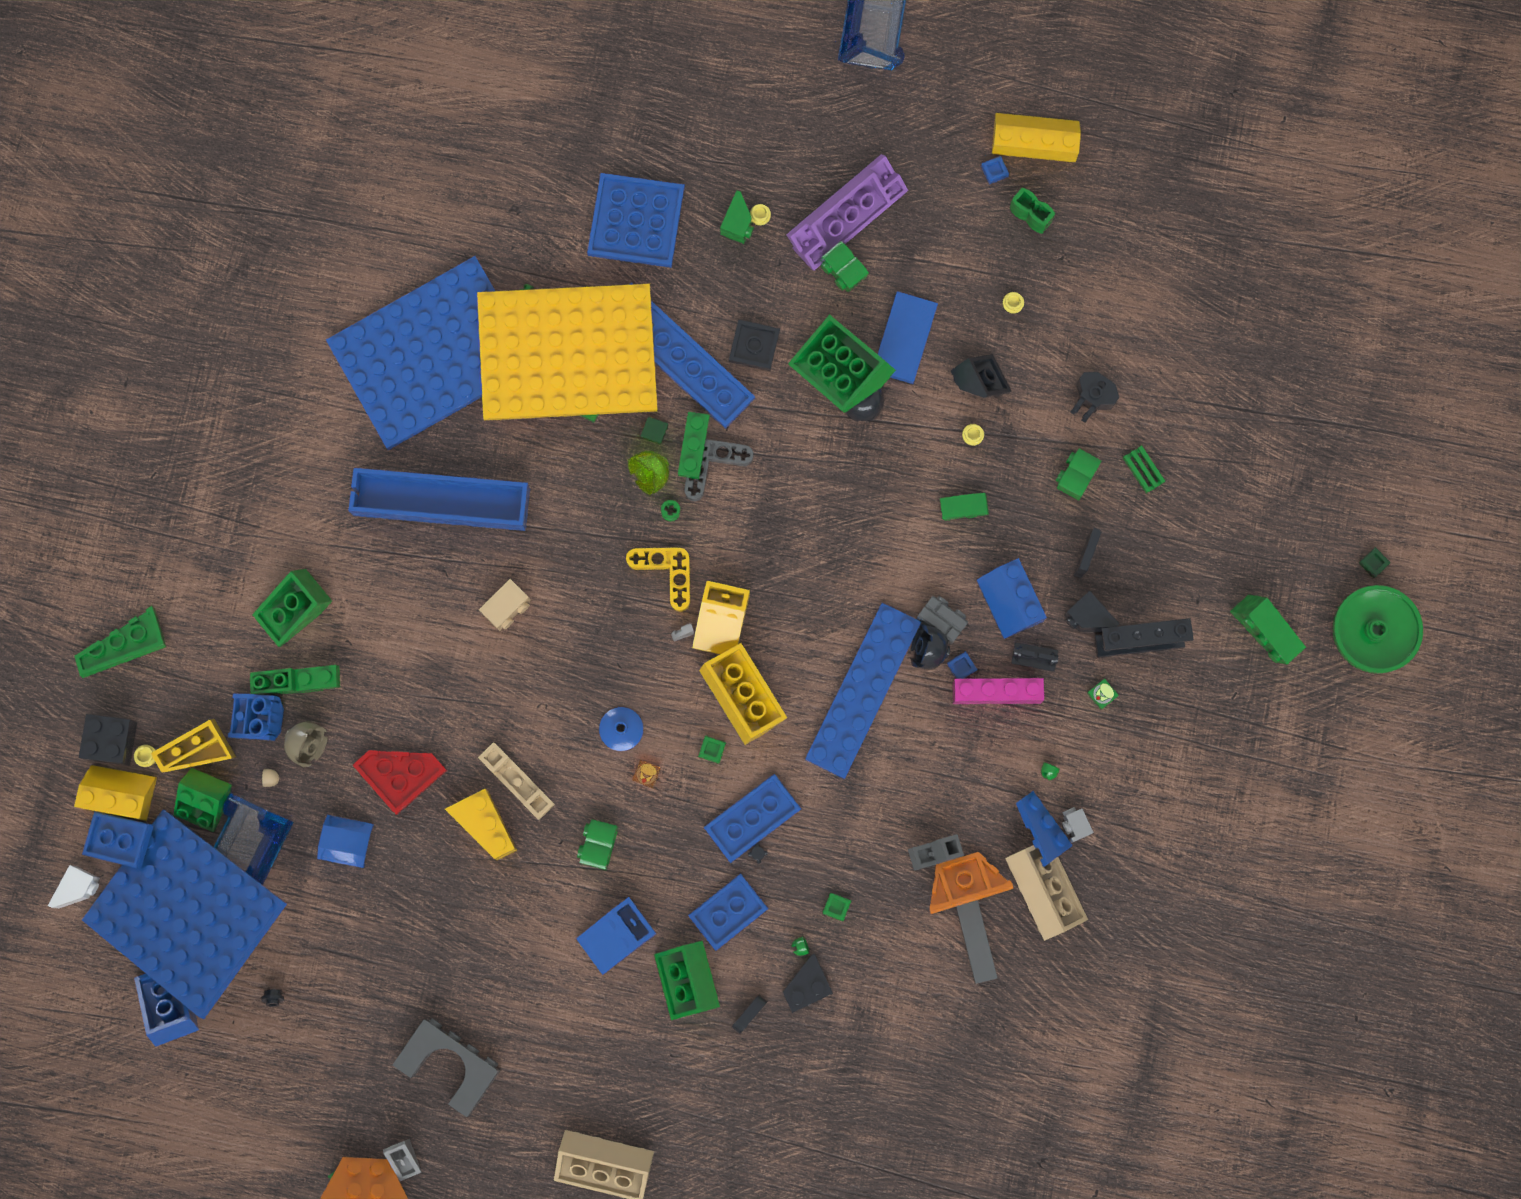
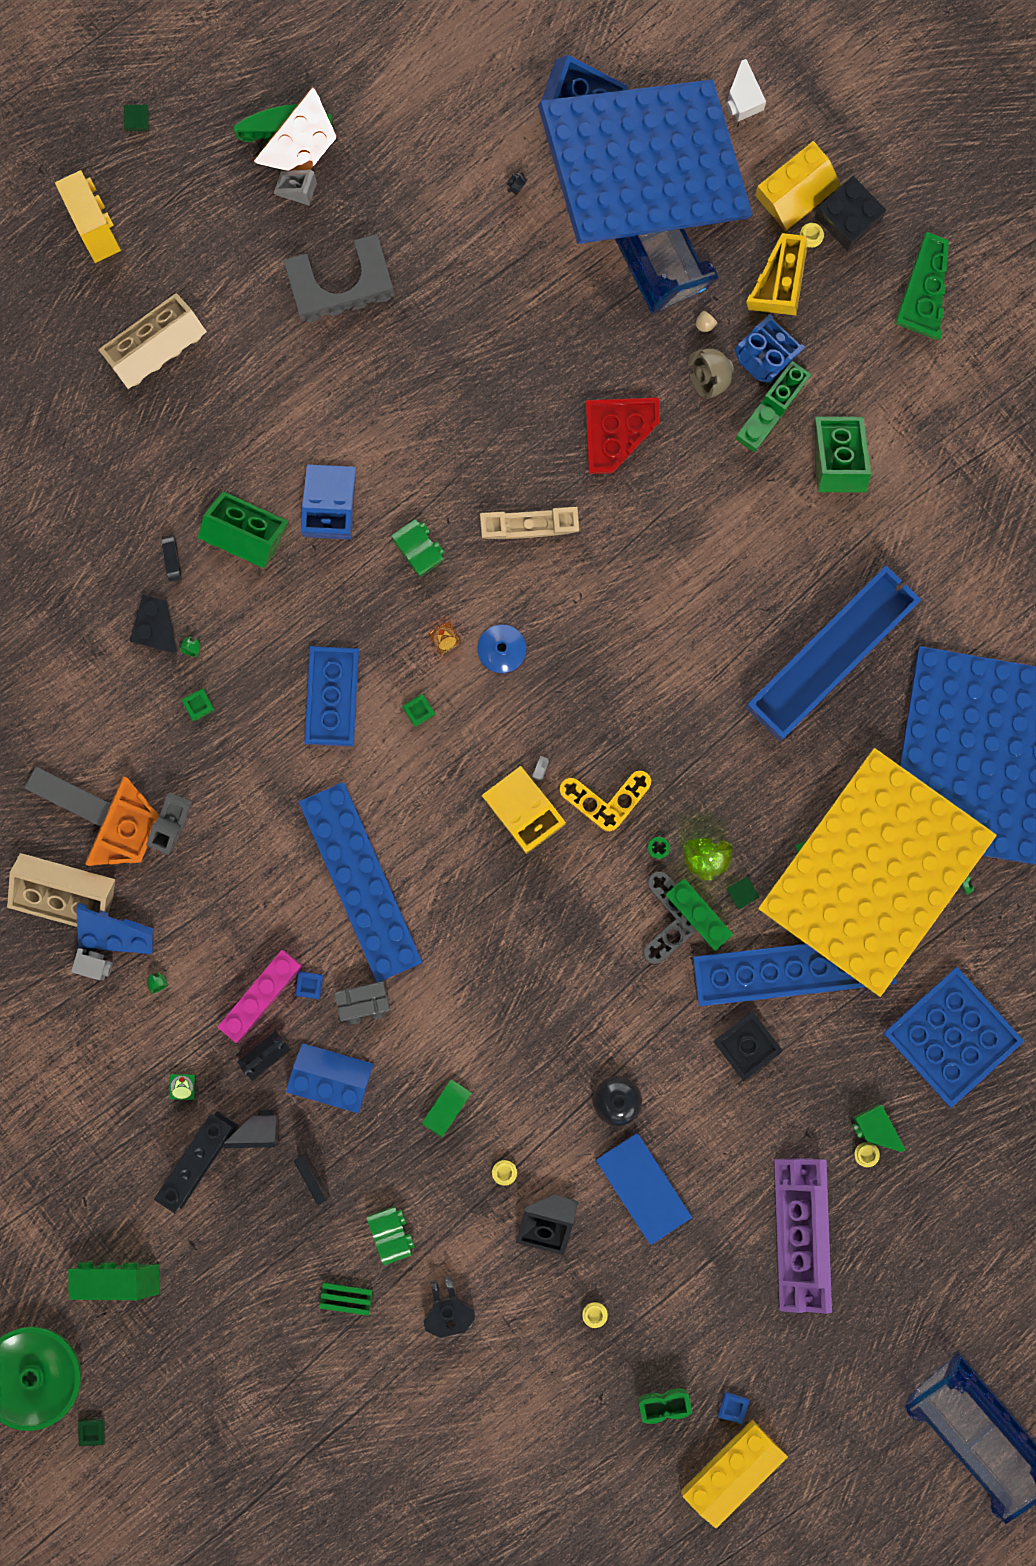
camera: 130 degrees right, 5 degrees up
(117, 840) = (754, 157): blue tile -> none
(201, 799) = (734, 252): green slope -> none
(344, 841) = (599, 342): blue slope -> none
(483, 822) = (515, 466): yellow wedge -> none
(505, 605) = (691, 635): tan brick -> none
(728, 912) = (270, 611): blue tile -> none
(742, 693) = (442, 774): yellow slope -> none
(757, 853) = (298, 676): black piece -> none
(840, 365) = (662, 1104): green slope -> none
(844, 267) = (753, 1188): green brick -> none
(930, 648) = (346, 969): black cylinder -> none

